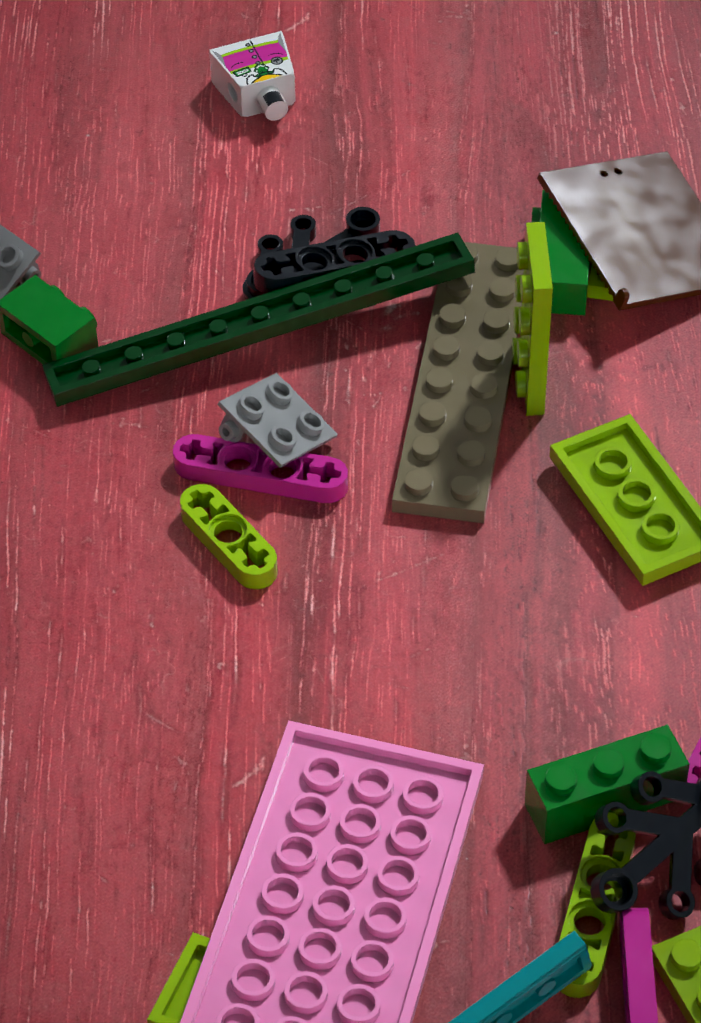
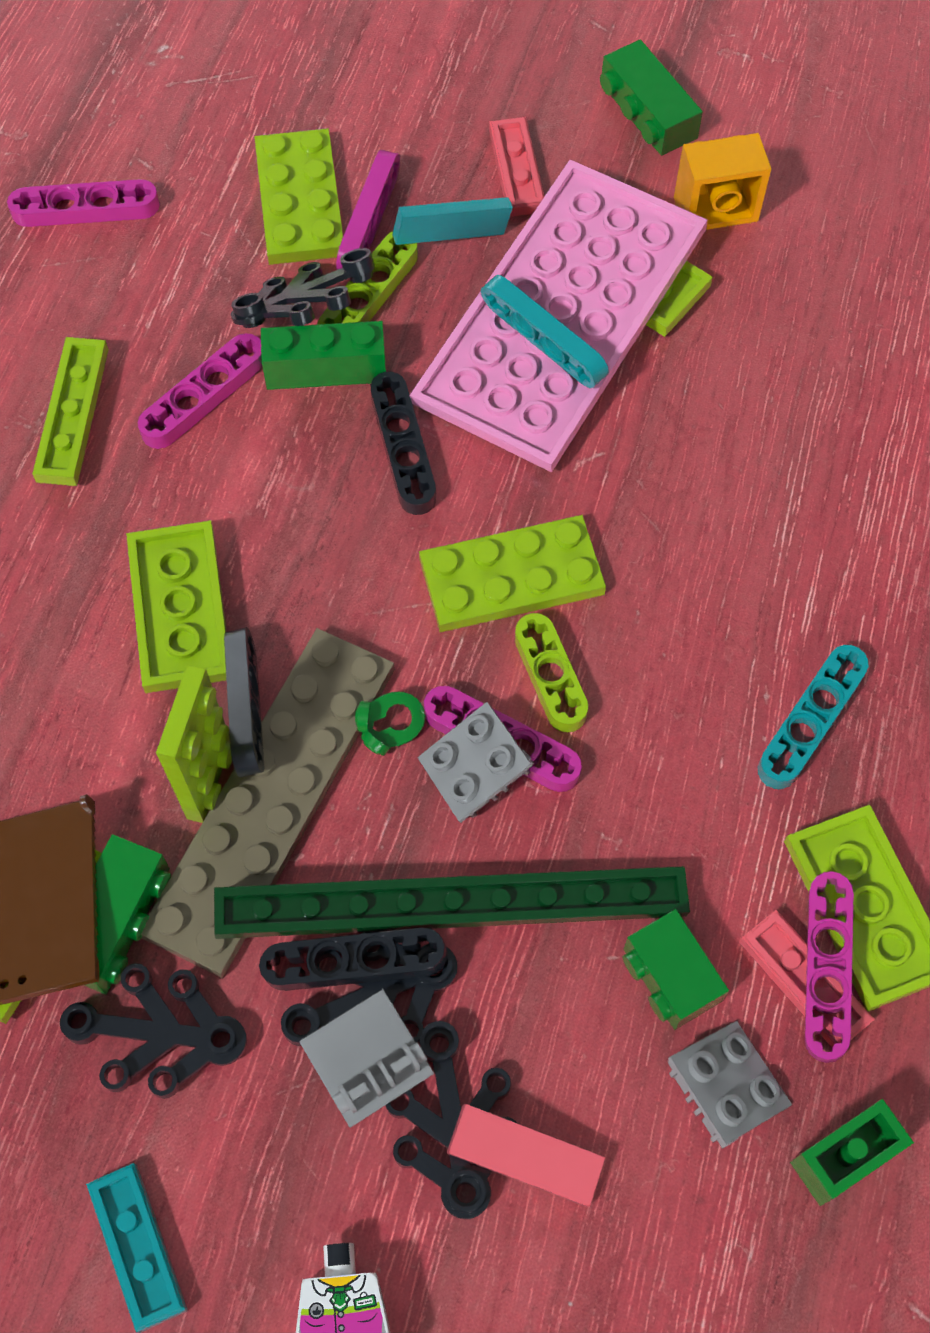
camera: 165 degrees left, 15 degrees up
(145, 187) = (526, 1155): none -> coral tile
(192, 166) = (442, 1129): none -> black plant
(295, 205) = (366, 1058): none -> light grey hinge
(299, 621) = (511, 573): none -> lime plate
(343, 842) = (544, 331): none -> teal beam
(382, 435) = (372, 711): none -> green piece
(434, 89) = (136, 1248): none -> teal tile
(434, 204) = (161, 1033): none -> black plant
(467, 728) = (401, 442): none -> black beam
(523, 416) = (243, 703): none -> black beam

